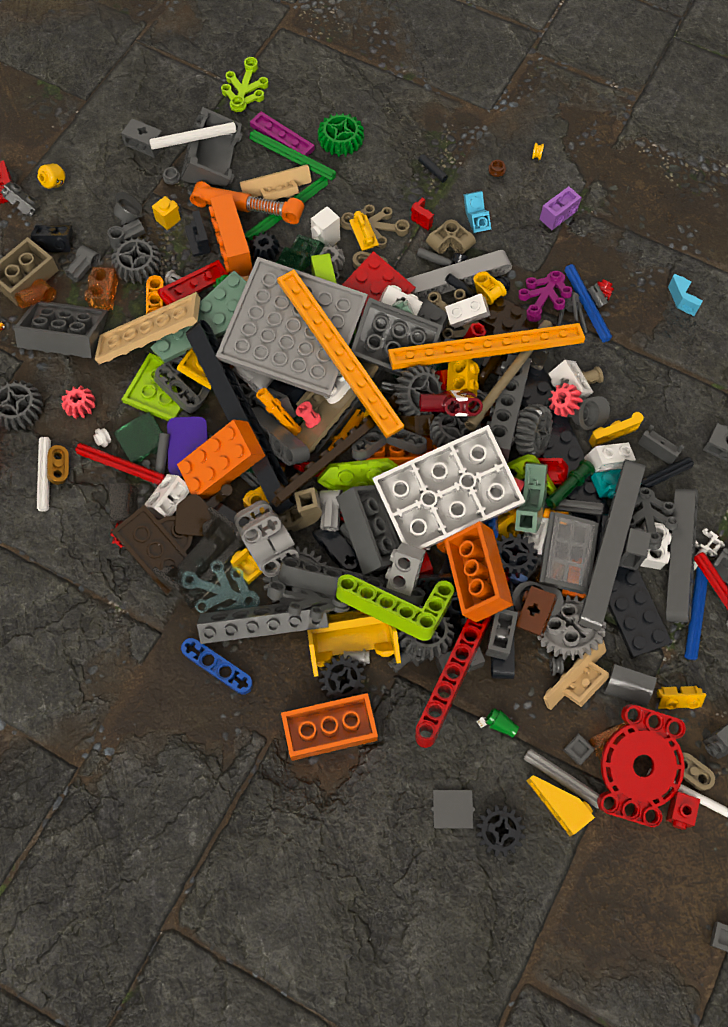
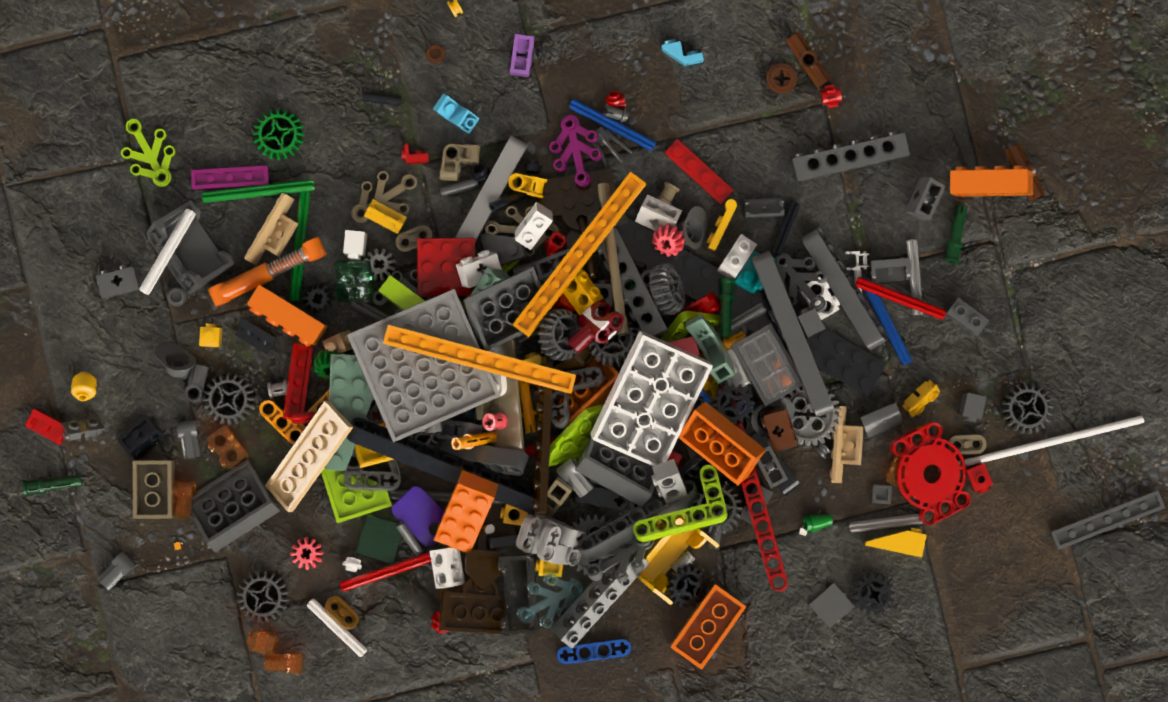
camera: 40 degrees left, 20 degrees up
(628, 381) = (698, 171): none -> red plate

